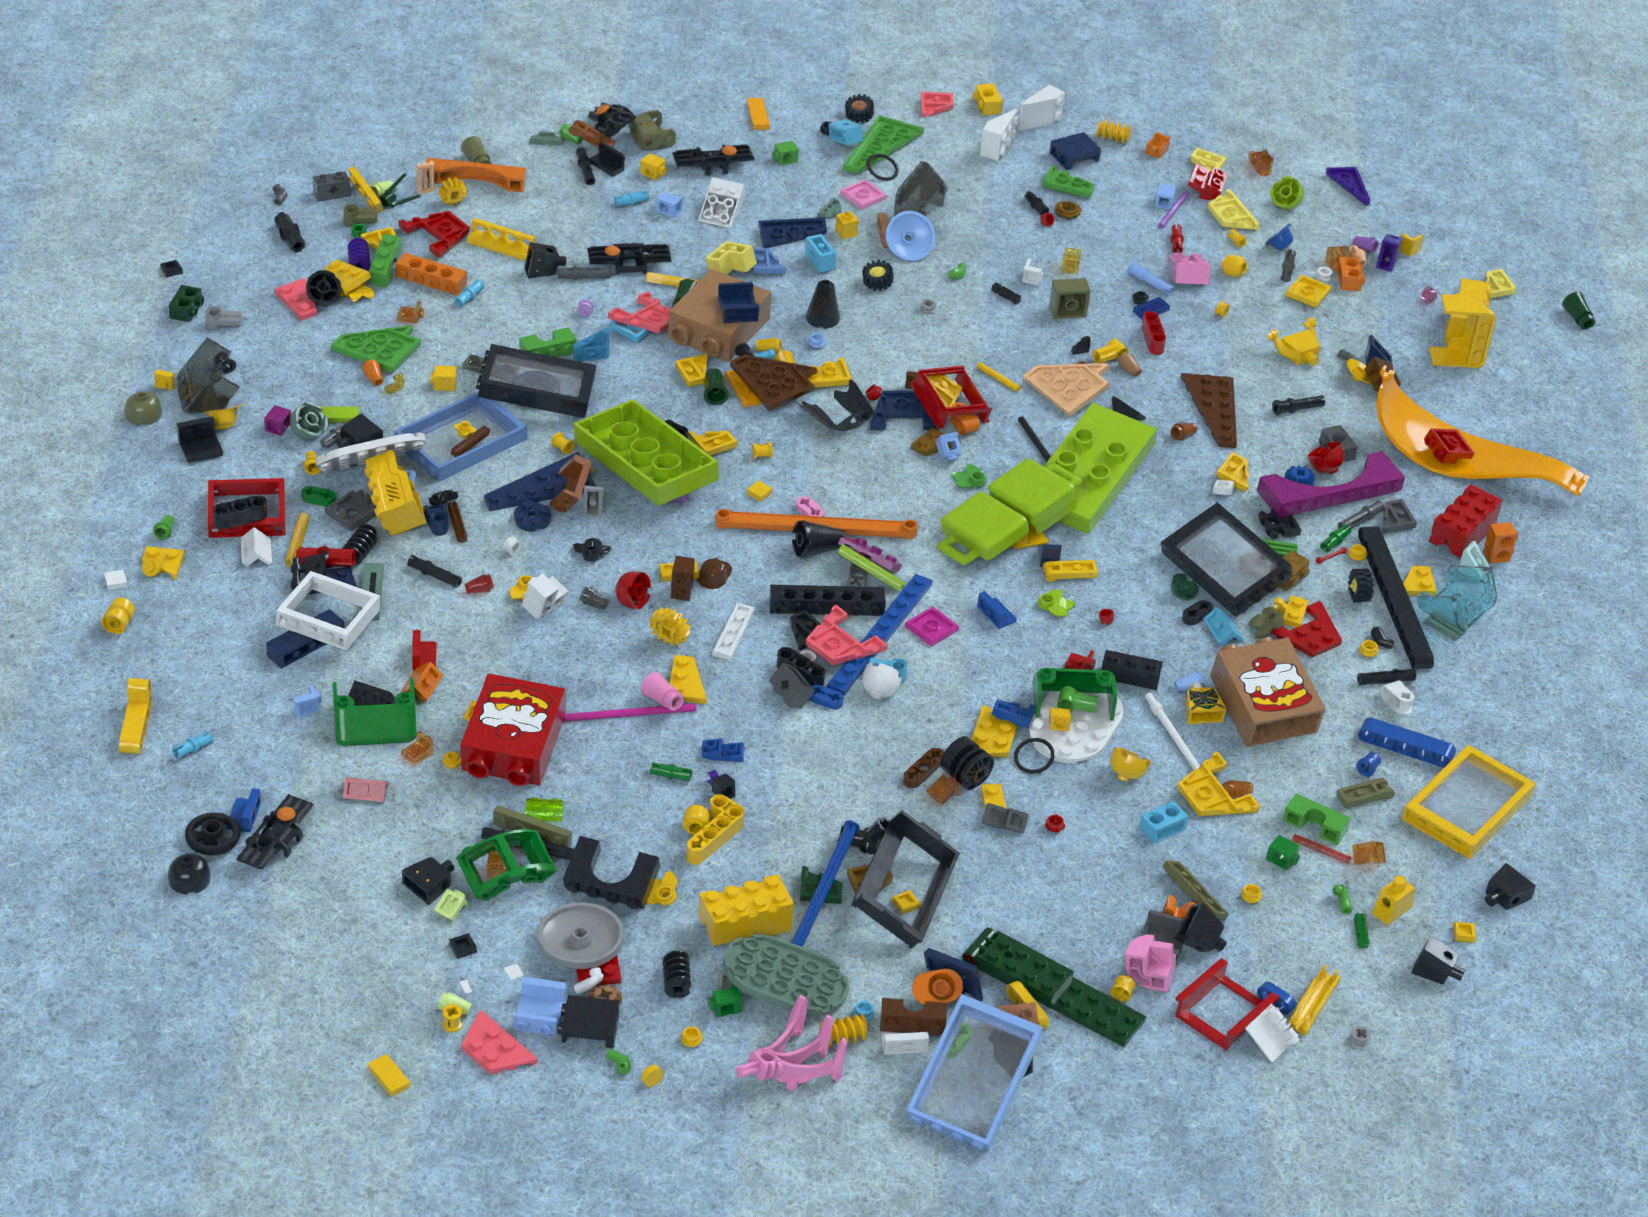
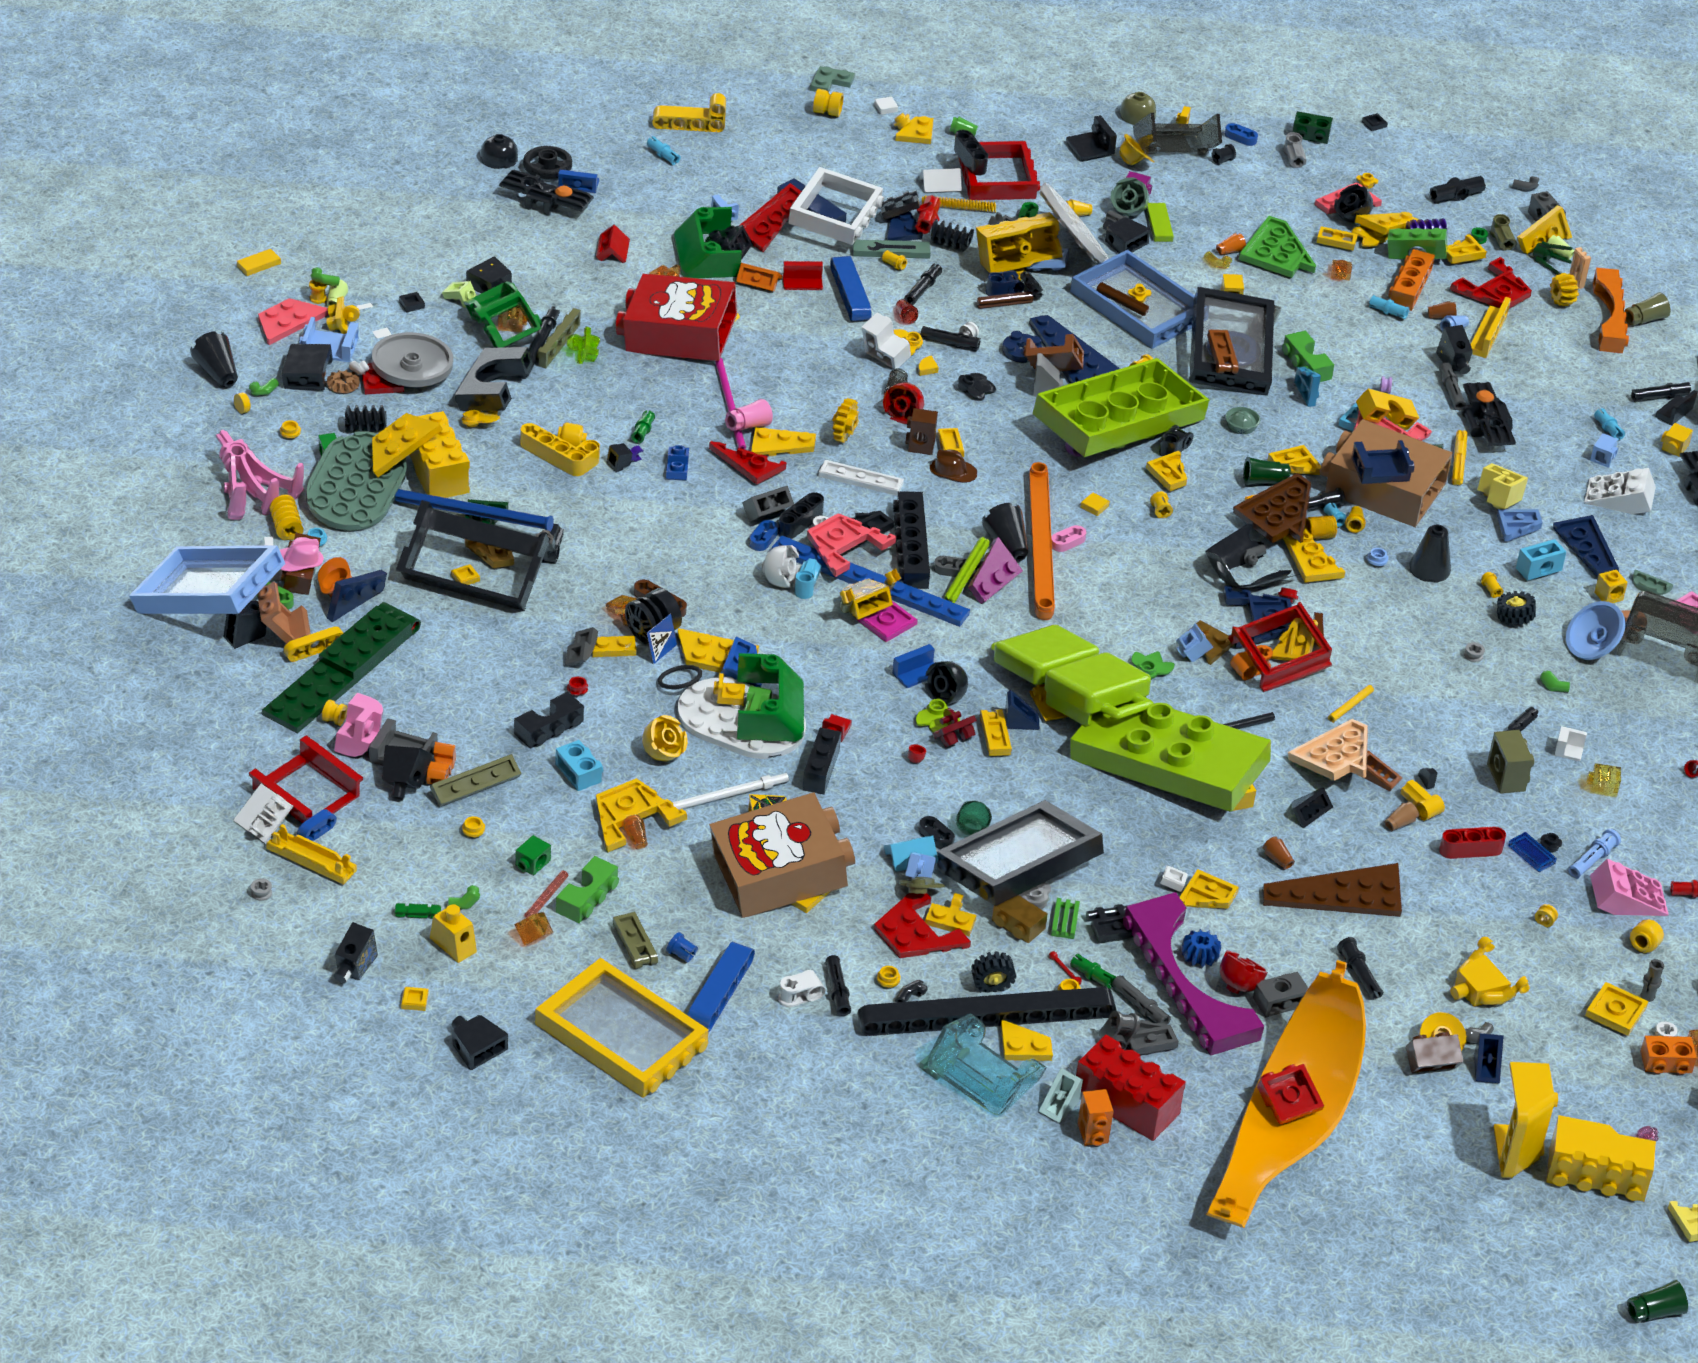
camera: 90 degrees right, 0 degrees up
(60, 619) = (827, 76): none -> sand green plate
(186, 349) = (1241, 134): none -> blue beam
(269, 283) = (1367, 180): none -> yellow plate
(329, 663) = (771, 217): none -> red wing
(364, 310) = (1337, 238): none -> yellow piece
(396, 586) = (899, 262): none -> yellow pin
(443, 619) = (850, 288): none -> blue beam
(453, 1000) = (324, 278): none -> bright green arm
(475, 262) = (1441, 310): none -> dark orange cone
(494, 260) = (1451, 320): none -> light blue cone
(496, 995) = (341, 315): none -> yellow hips
(524, 554) = (957, 339): none -> black pin
(563, 577) = (928, 366): none -> yellow tile
(570, 380) = (1223, 351): none -> dark orange plate
(585, 1094) = (216, 357): none -> black cone
(636, 303) = (1376, 405): none -> yellow arch
(639, 391) = (1242, 420): none -> sand green hat
(724, 699) = (750, 464): none -> red wing
(750, 924) = (400, 440): none -> yellow wing
(820, 407) = (1251, 554): none -> dark grey arm
(841, 286) = (1490, 581): none -> yellow pin
(917, 627) = (868, 596): none -> torso
(920, 1008) = (301, 555): none -> bright pink piece
(1000, 762) = (661, 638): none -> blue sticker
(1021, 585) = (946, 677): none -> black cylinder
(1076, 590) = (947, 733): none -> dark red hips
(1120, 849) = (536, 729): none -> black arch
(1247, 621) = (920, 865): none -> light blue bracket
(1405, 525) = (1121, 1027): none -> dark grey piece

